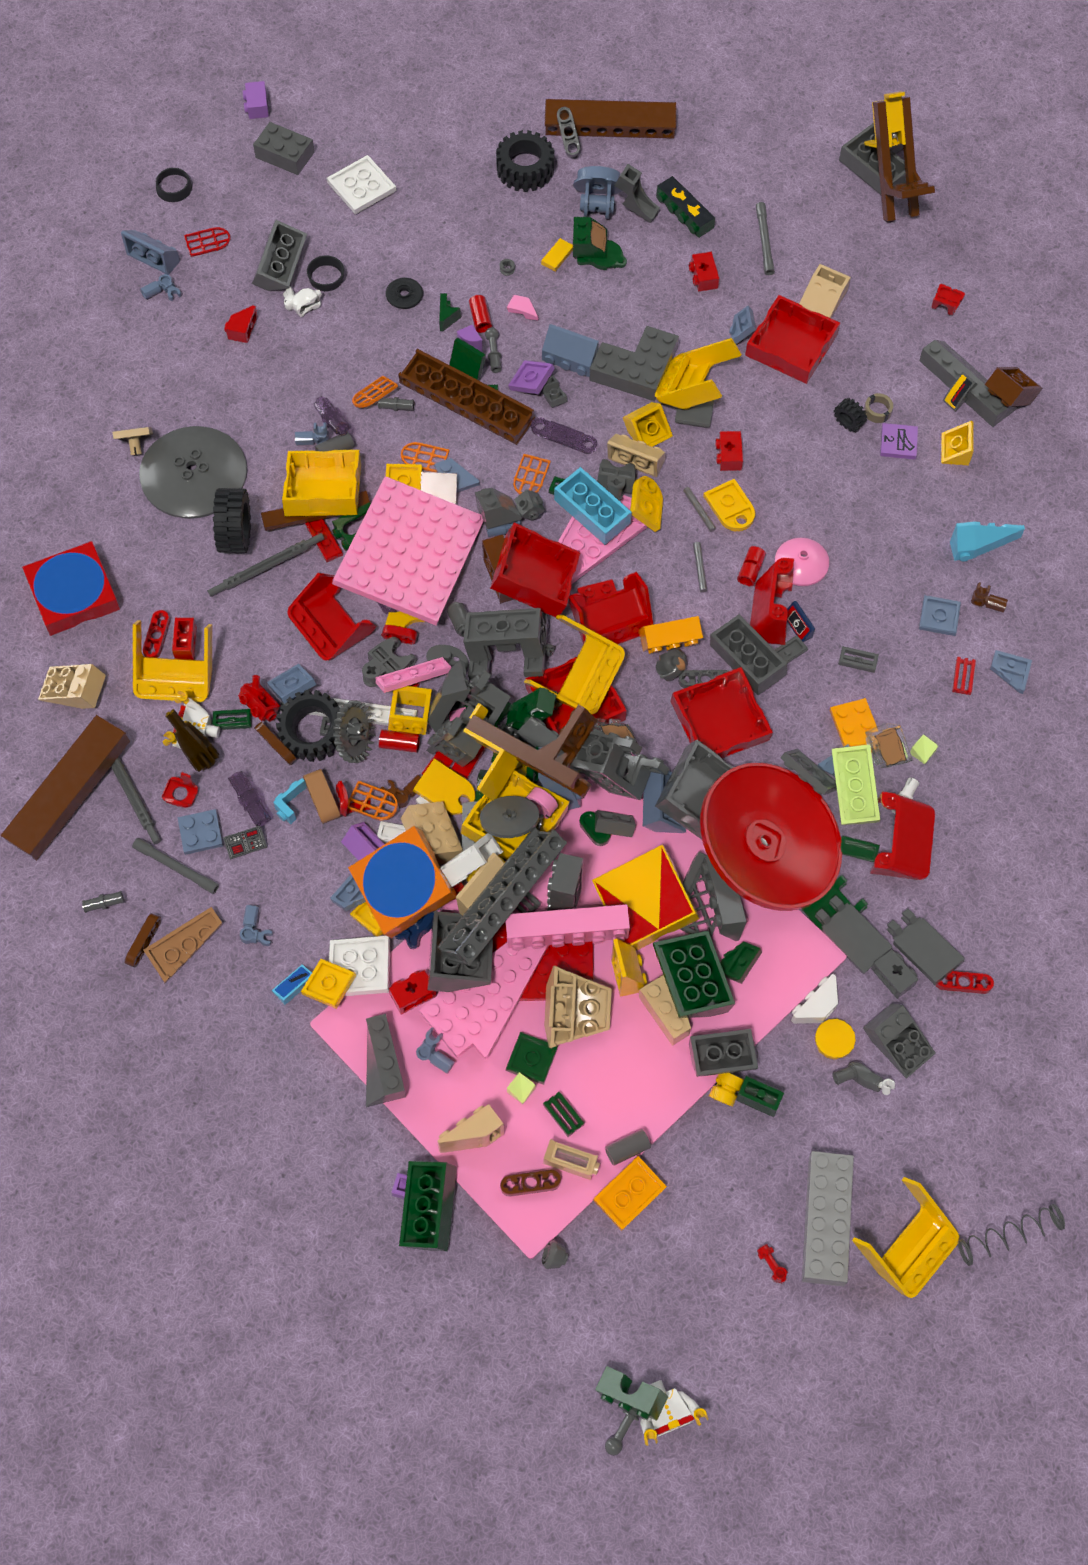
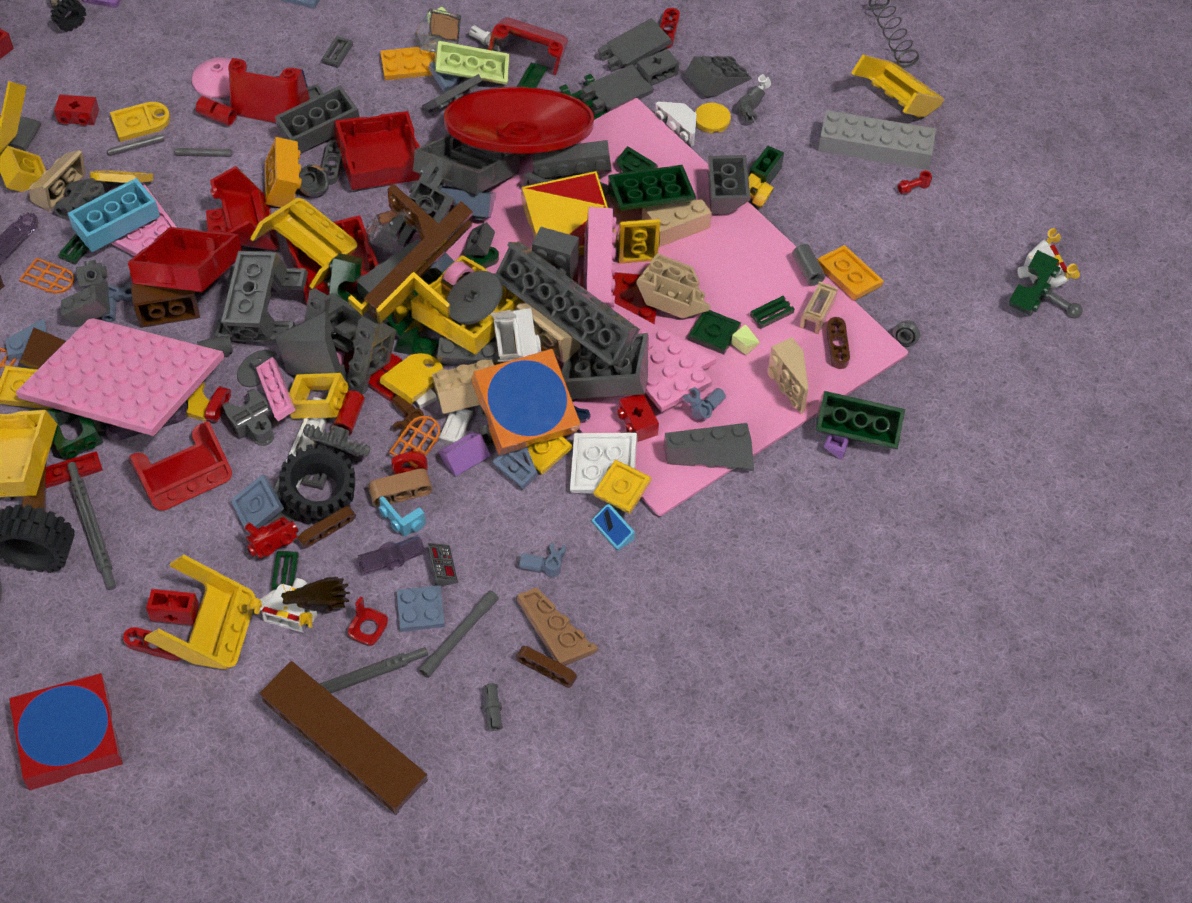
camera: 85 degrees left, 10 degrees down
(73, 685) = (202, 735): tan slope -> none

